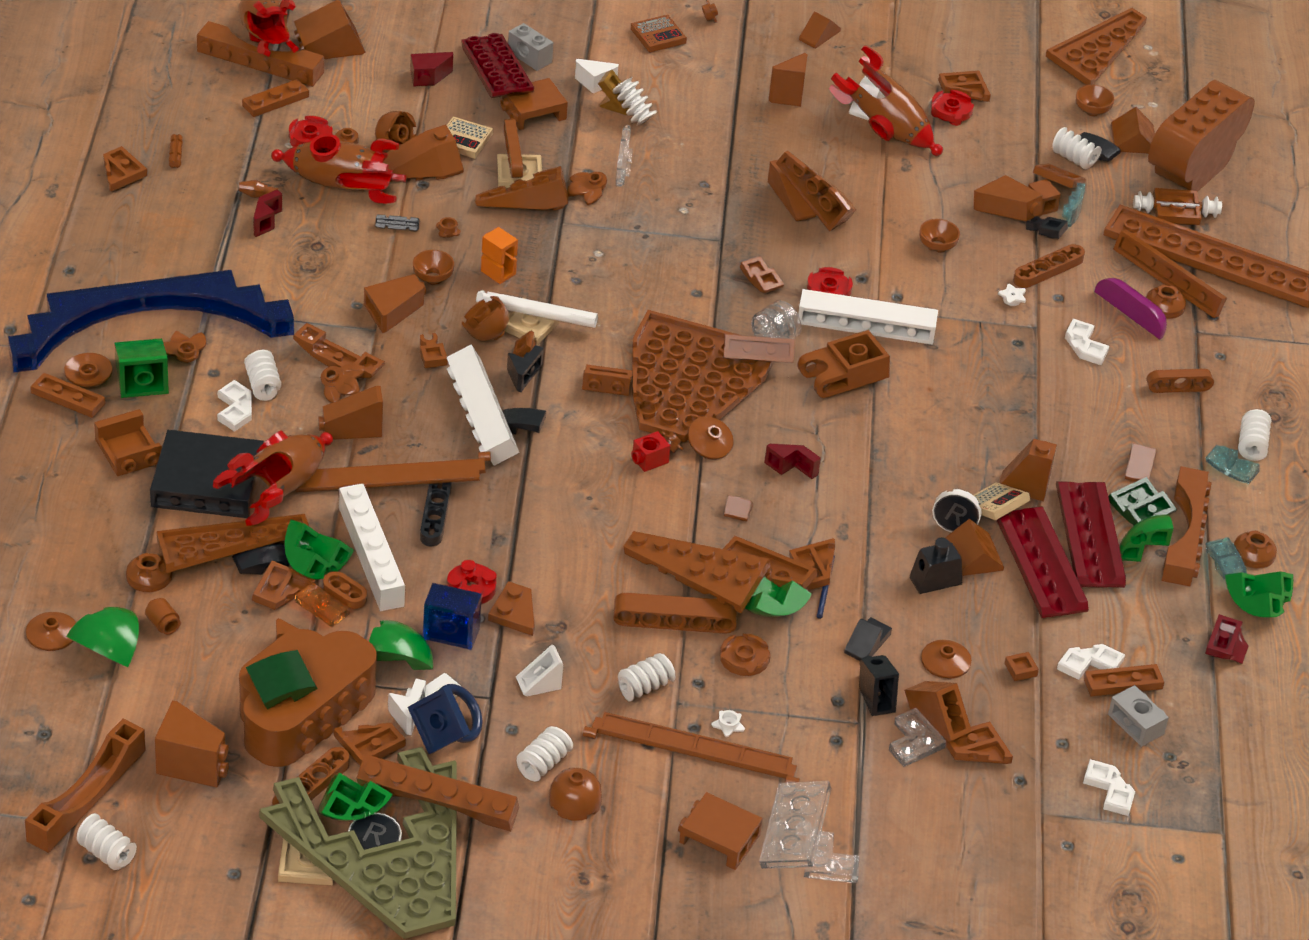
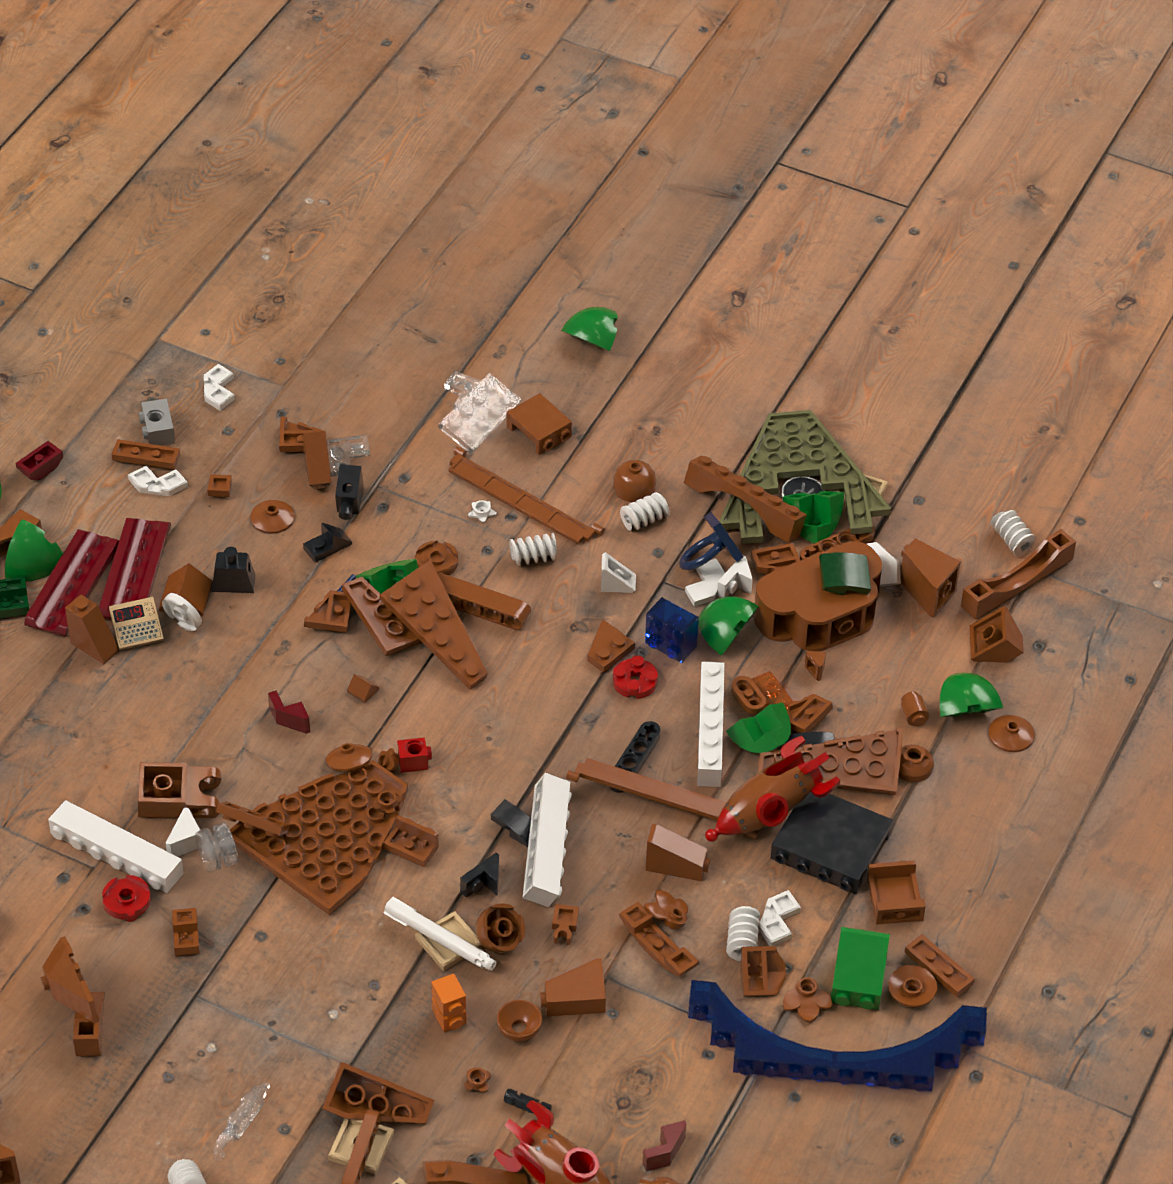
camera: 155 degrees left, 5 degrees up
(91, 706) = (995, 638): none -> dark orange slope
(232, 352) = (761, 971): none -> dark orange slope
(258, 765) = (890, 566): none -> white tile
(524, 344) = (470, 907): dark orange slope -> none
(588, 185) = (301, 1100): dark orange plate -> none
(811, 336) = (183, 835): none -> white slope

